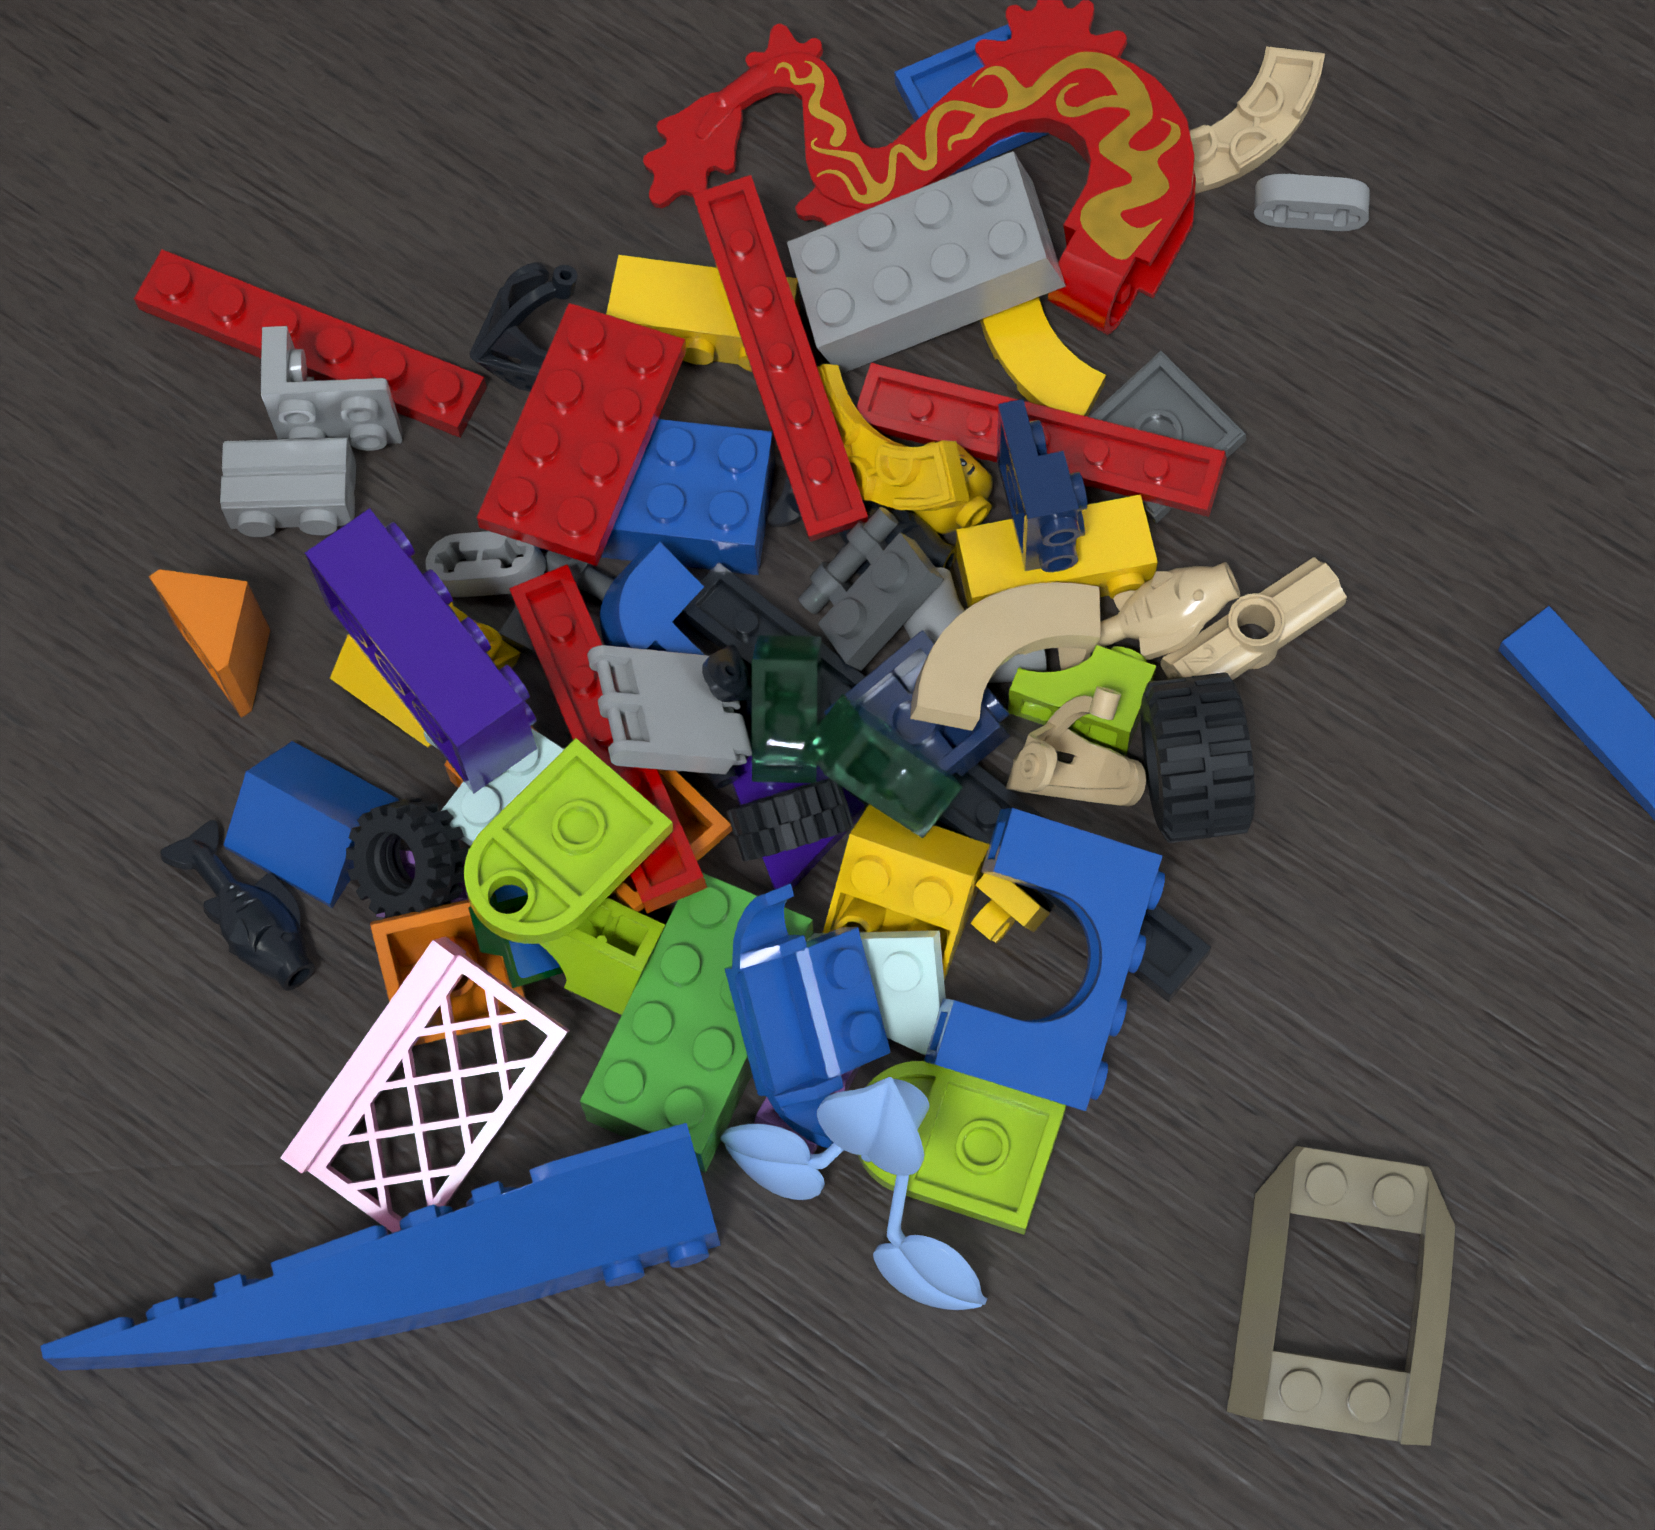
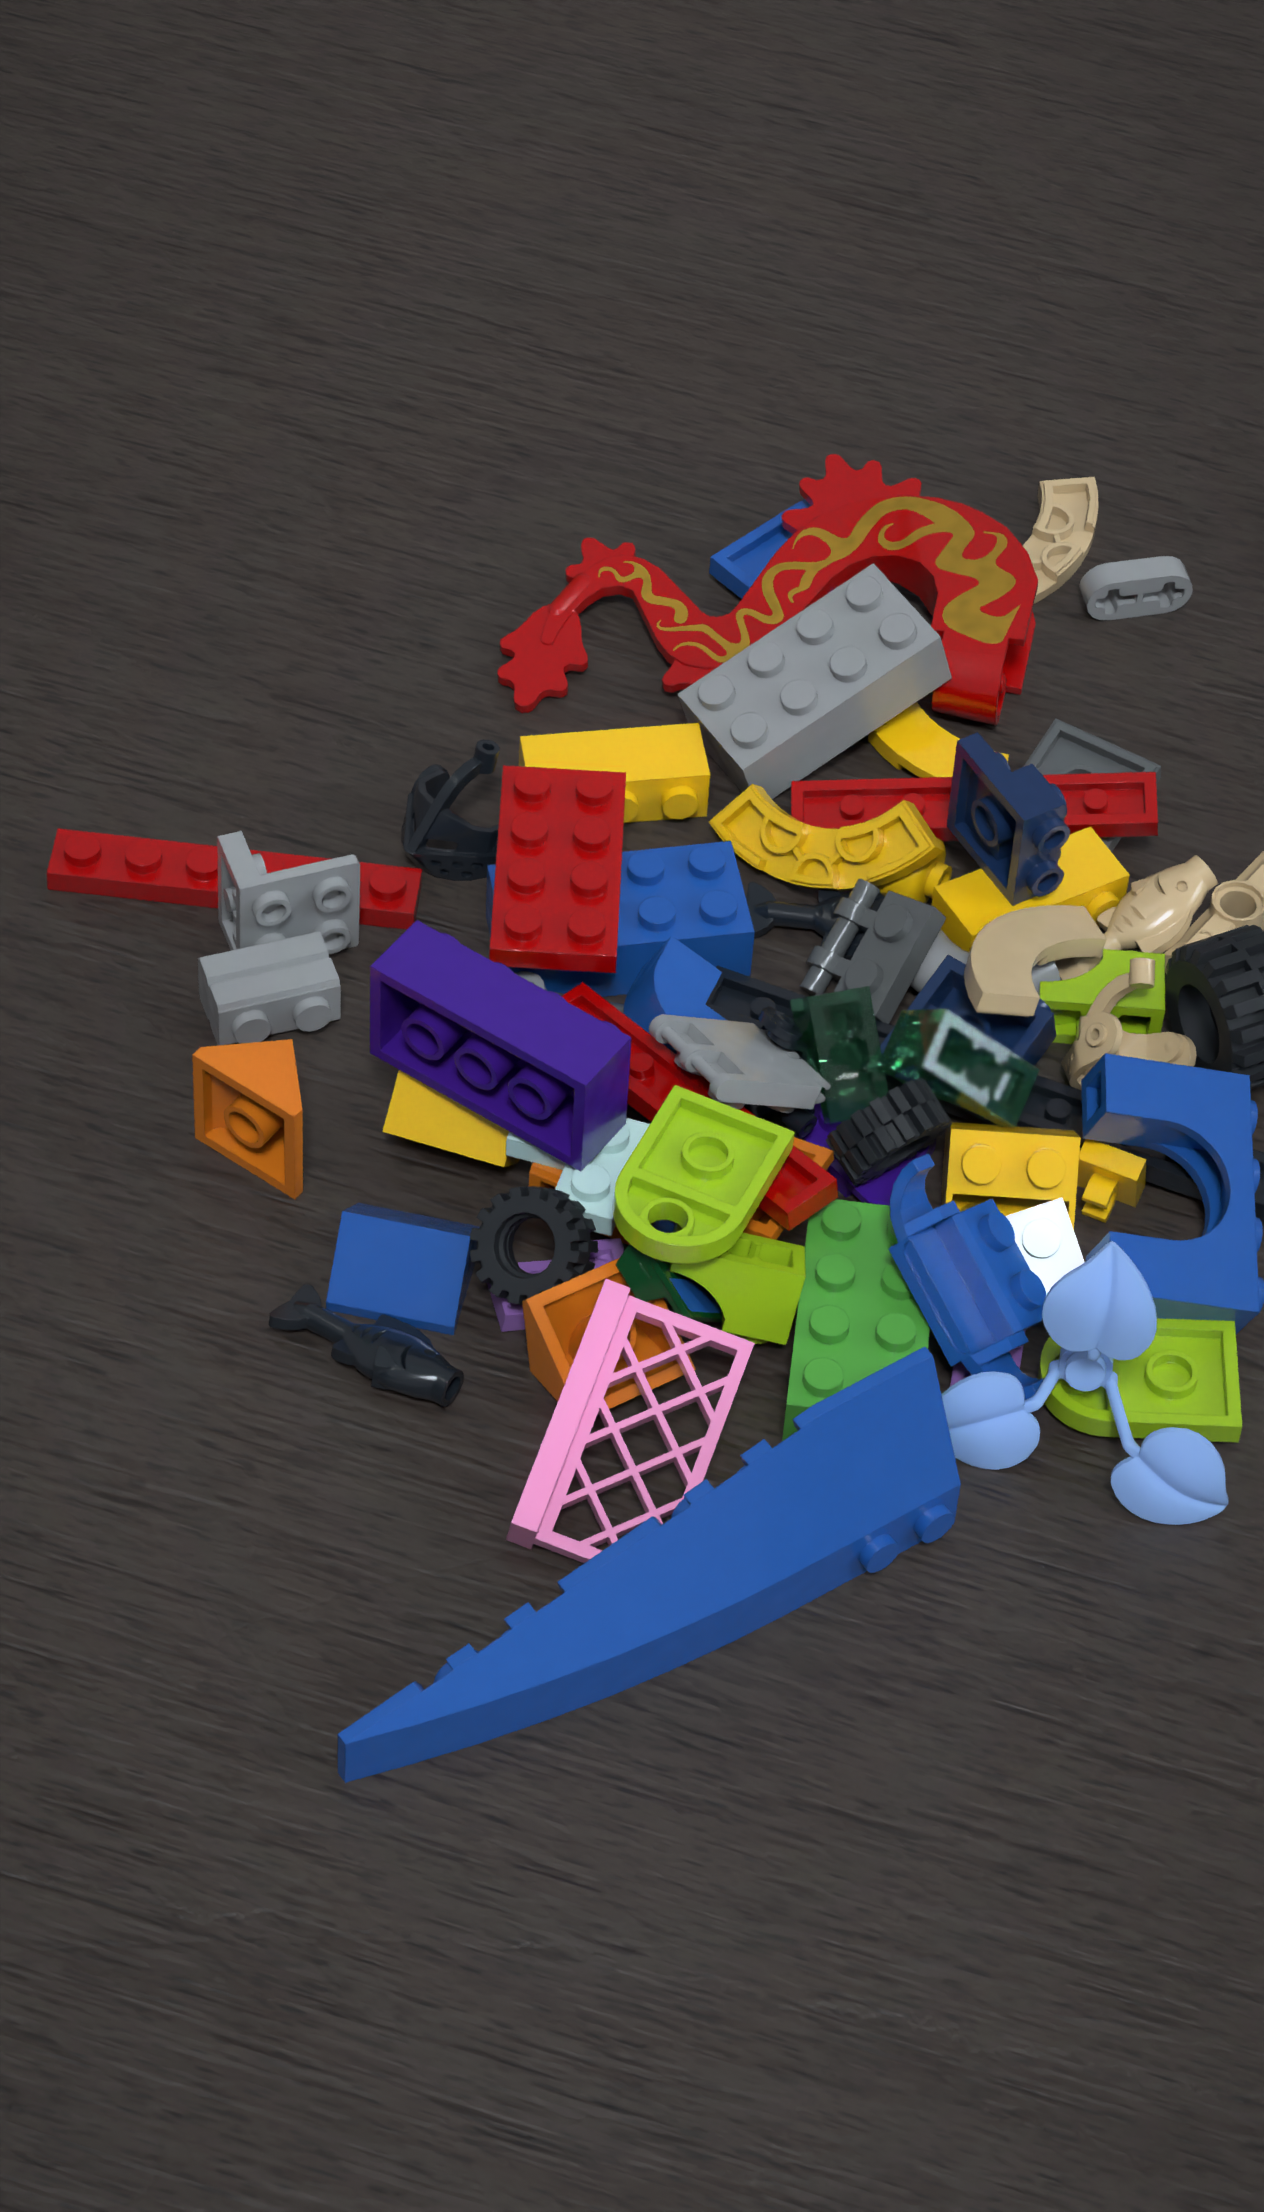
camera: 25 degrees left, 20 degrees down
(780, 358) = (715, 780): red plate -> none

